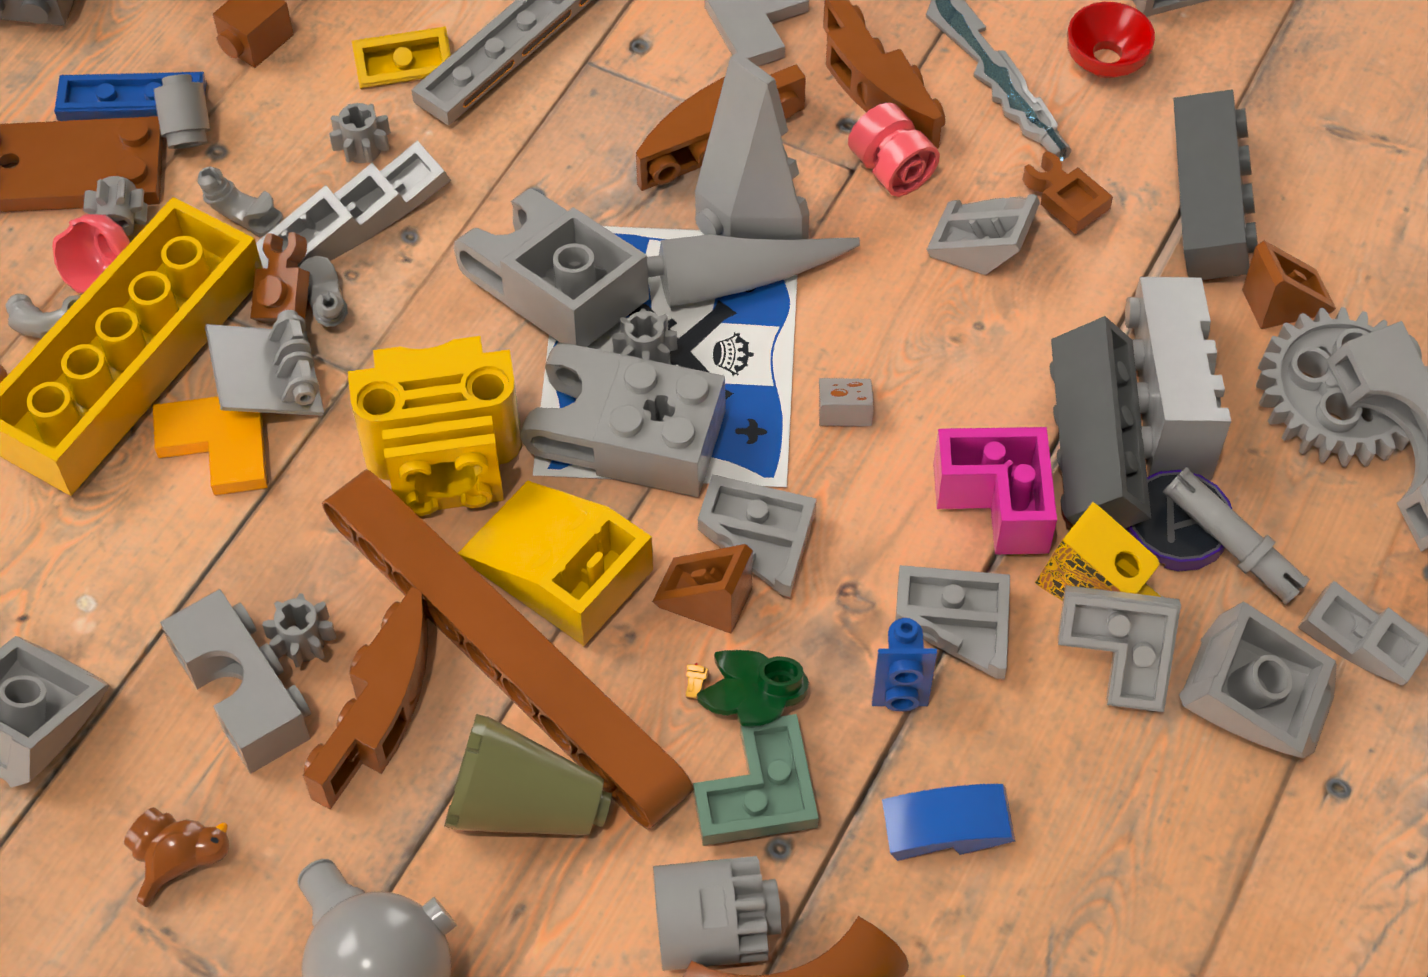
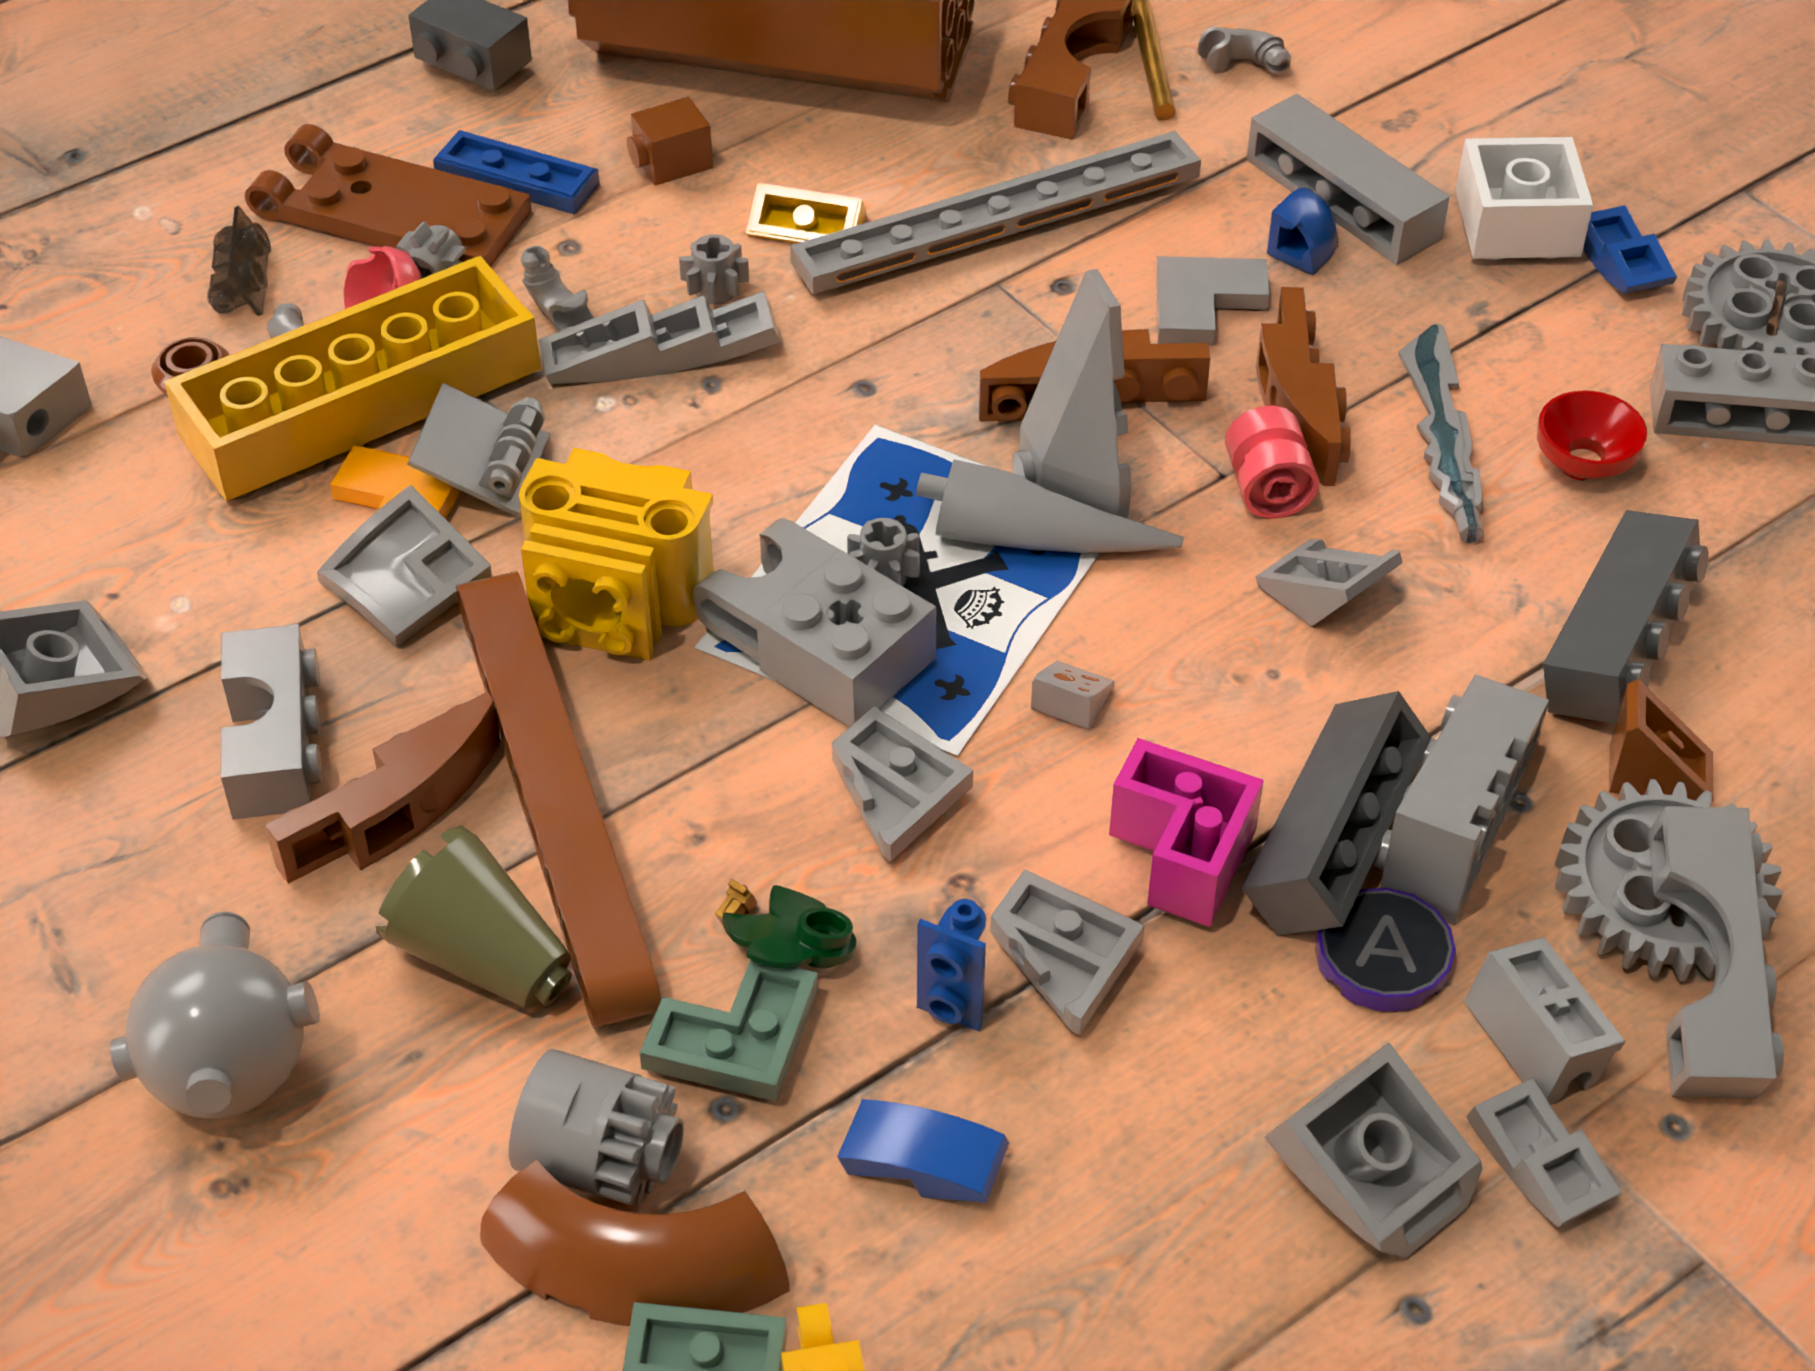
camera: 25 degrees right, 10 degrees down
(172, 848) = (103, 851): dark orange animal -> none
(182, 111) = (549, 193): light grey brick -> none
(264, 500) = (403, 566): none -> light grey plate
(283, 283) = (549, 374): dark orange plate -> none
(299, 629) = (358, 698): light grey gear -> none
(324, 291) = (587, 400): light grey piece -> none
(557, 269) = (832, 456): light grey brick -> none
(562, 557) = (668, 732): yellow slope -> none
(708, 586) = (808, 818): dark orange slope -> none
(1069, 197) = (1452, 578): dark orange plate -> none
(1099, 556) = (1250, 957): yellow torso -> none
(1136, 630) = (1248, 1035): light grey tile -> none
(1238, 537) = (1447, 1005): light grey pin -> none
(1319, 531) = (1542, 1018): none -> light grey hinge

